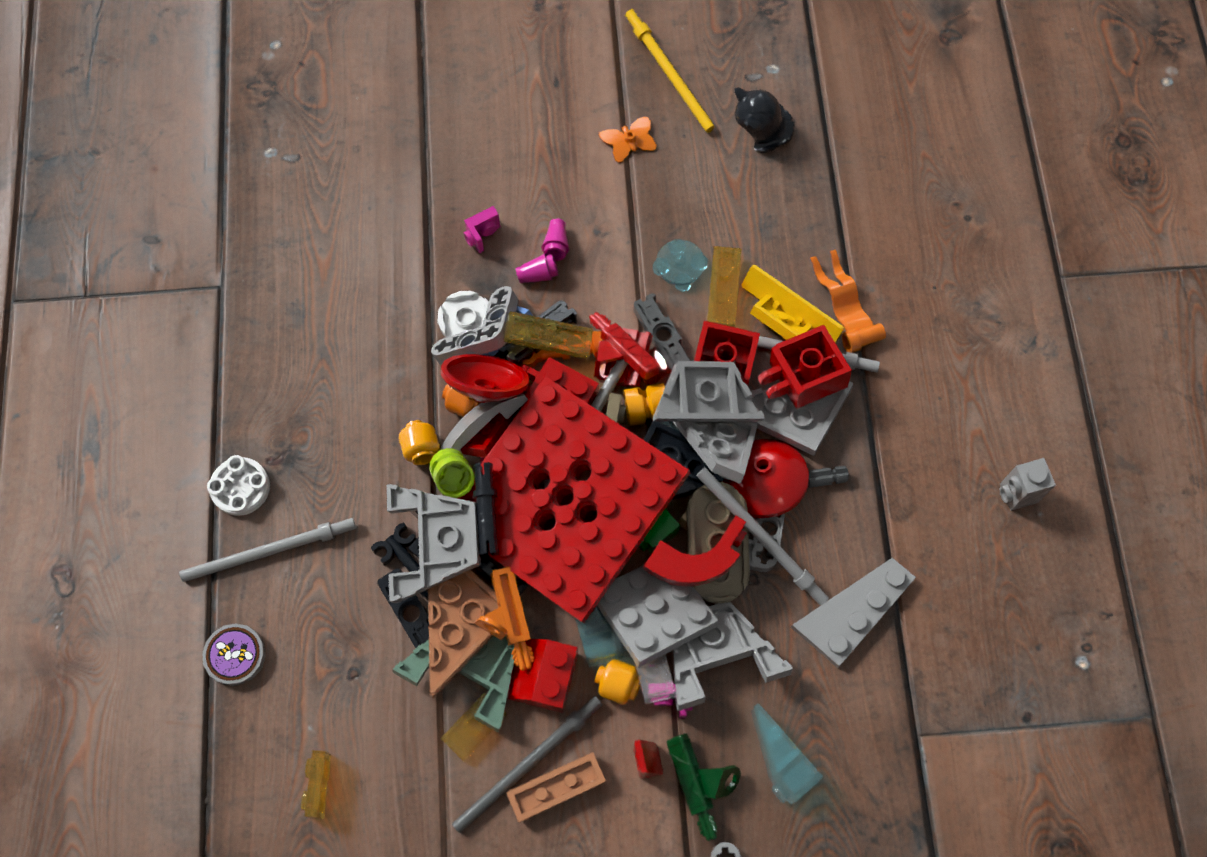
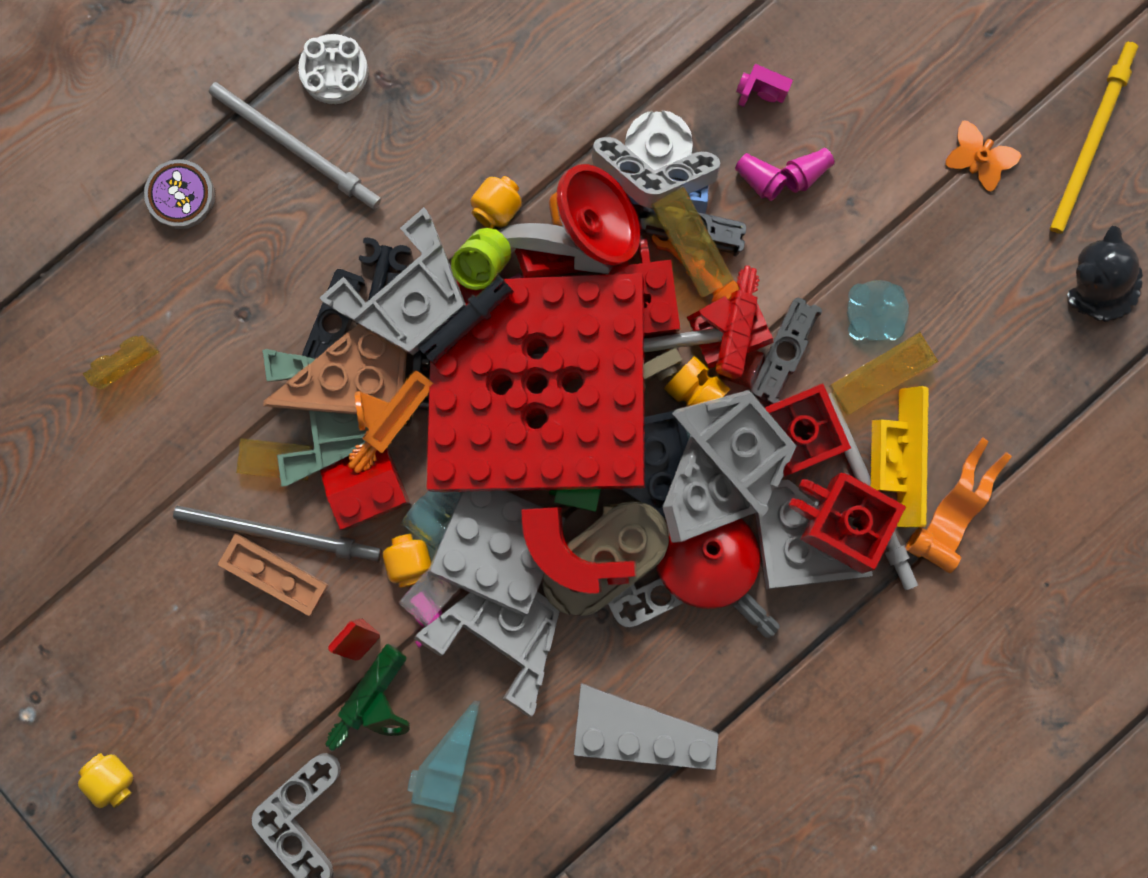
camera: 50 degrees right, 15 degrees up
(802, 578) = (633, 662): light grey bar -> none
(1026, 484) = (887, 819): light grey brick -> none

